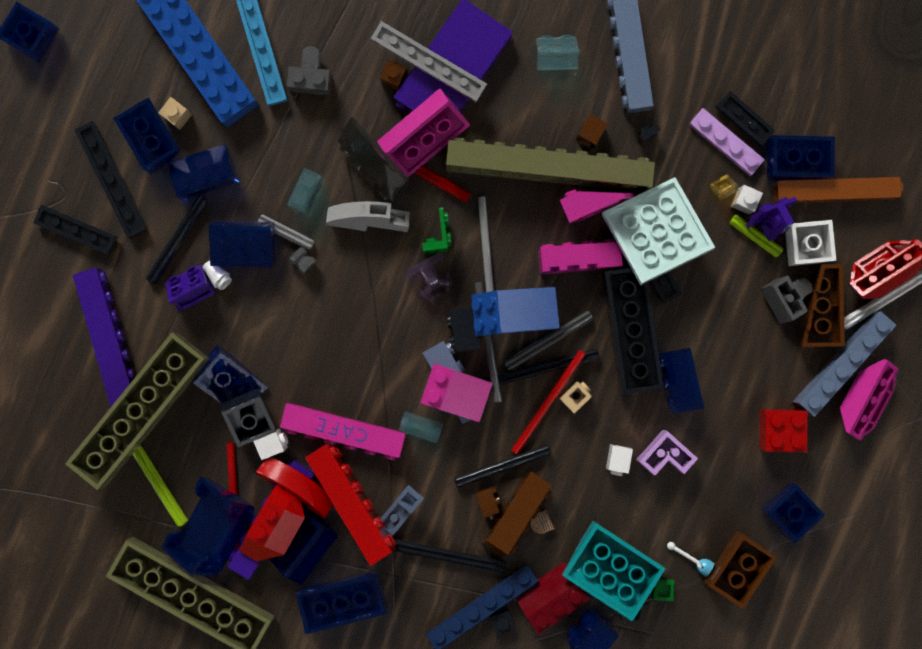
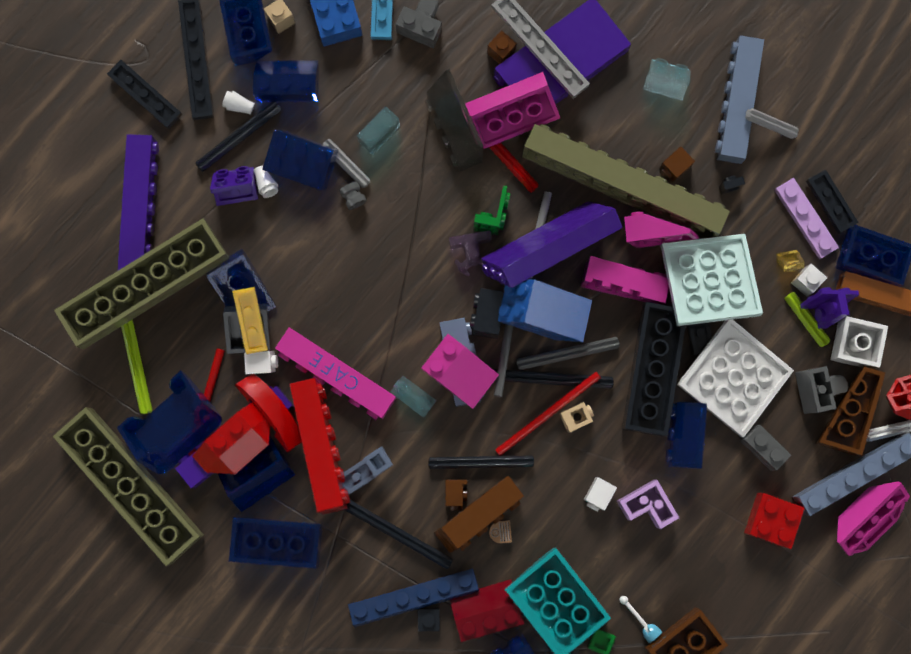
camera: 20 degrees right, 5 degrees down
(163, 209) = (237, 103): none -> white cone
(248, 411) = (250, 320): none -> yellow tile
(363, 214) = (426, 169): light grey slope -> none
(500, 247) = (551, 243): none -> dark purple brick
(675, 64) = (771, 123): none -> light grey axle
(707, 312) = (735, 377): none -> white plate
(755, 367) = (765, 448): none -> dark grey brick
(792, 512) = (757, 606): clear blue brick -> none

